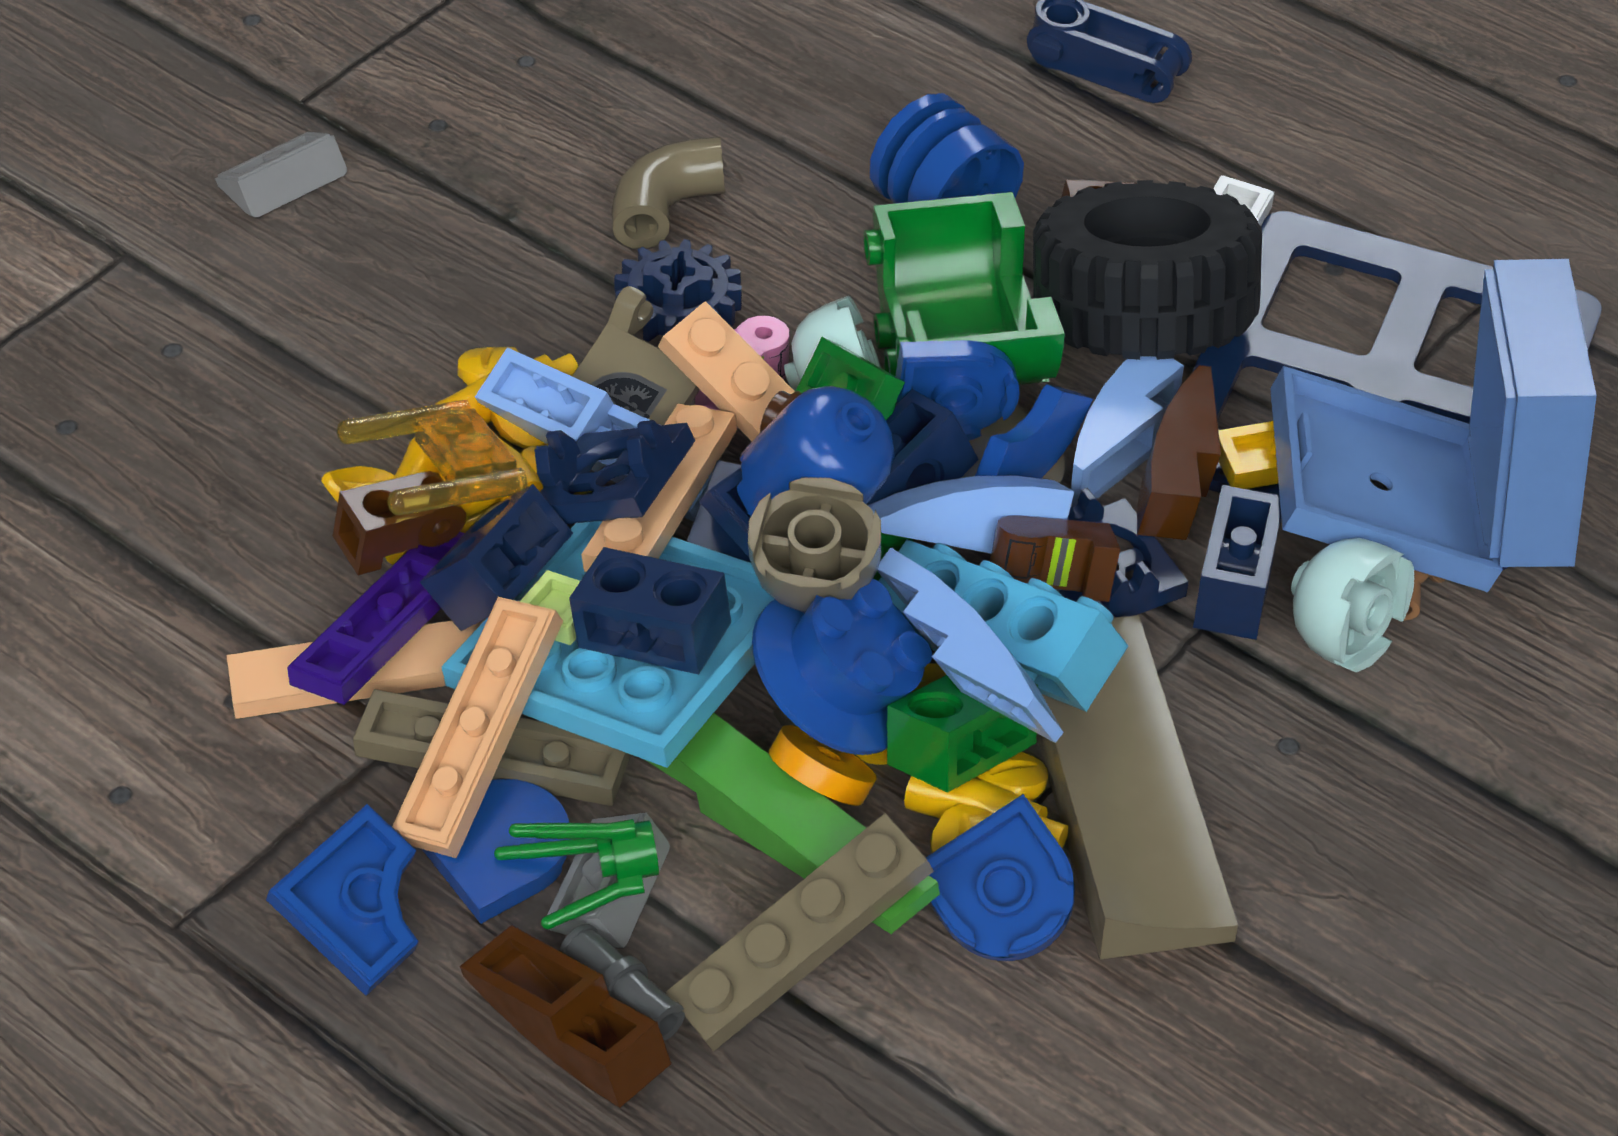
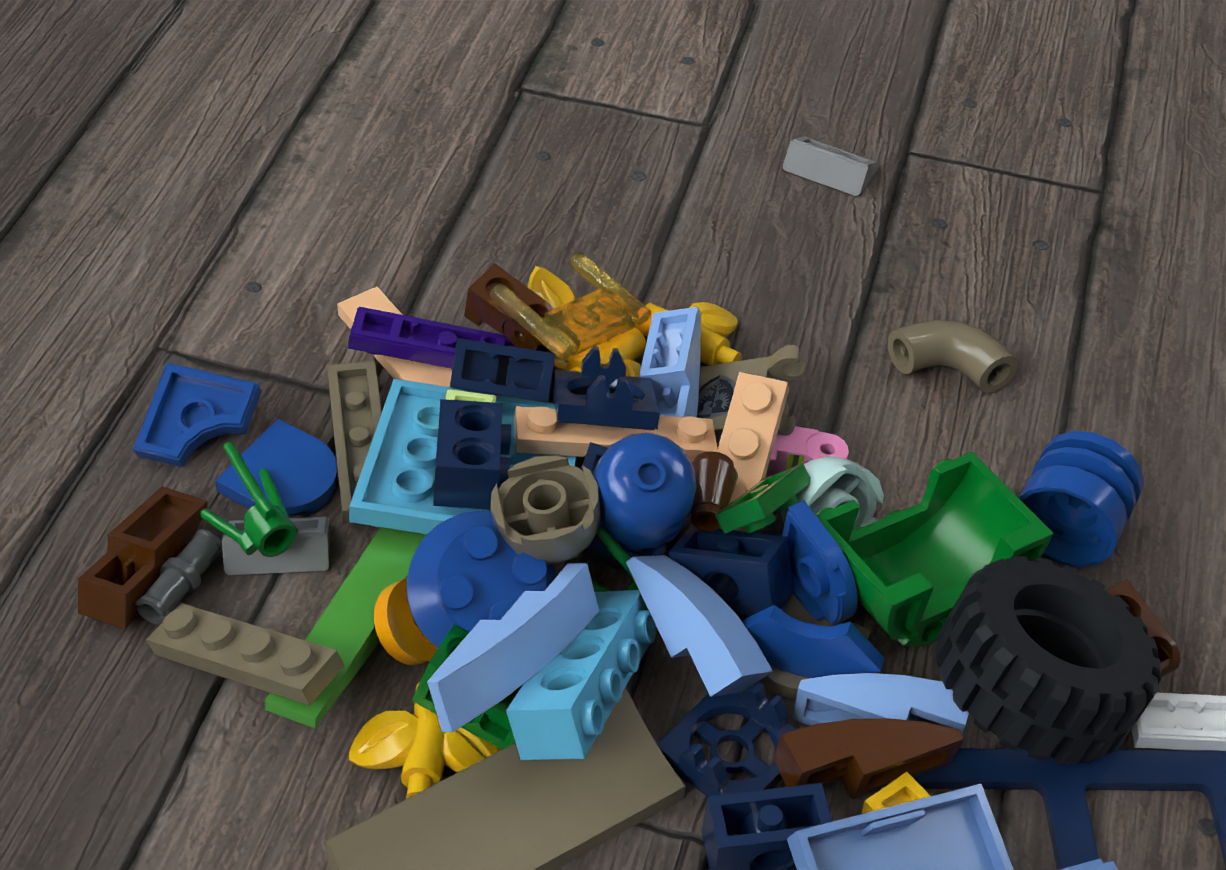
camera: 65 degrees right, 0 degrees up
(477, 726) = (345, 411): light nougat tile -> none
(680, 282) = (845, 393): dark blue gear -> none
(1004, 885) = (352, 770): blue tile -> none
(1058, 552) = (684, 693): reddish brown leg -> none

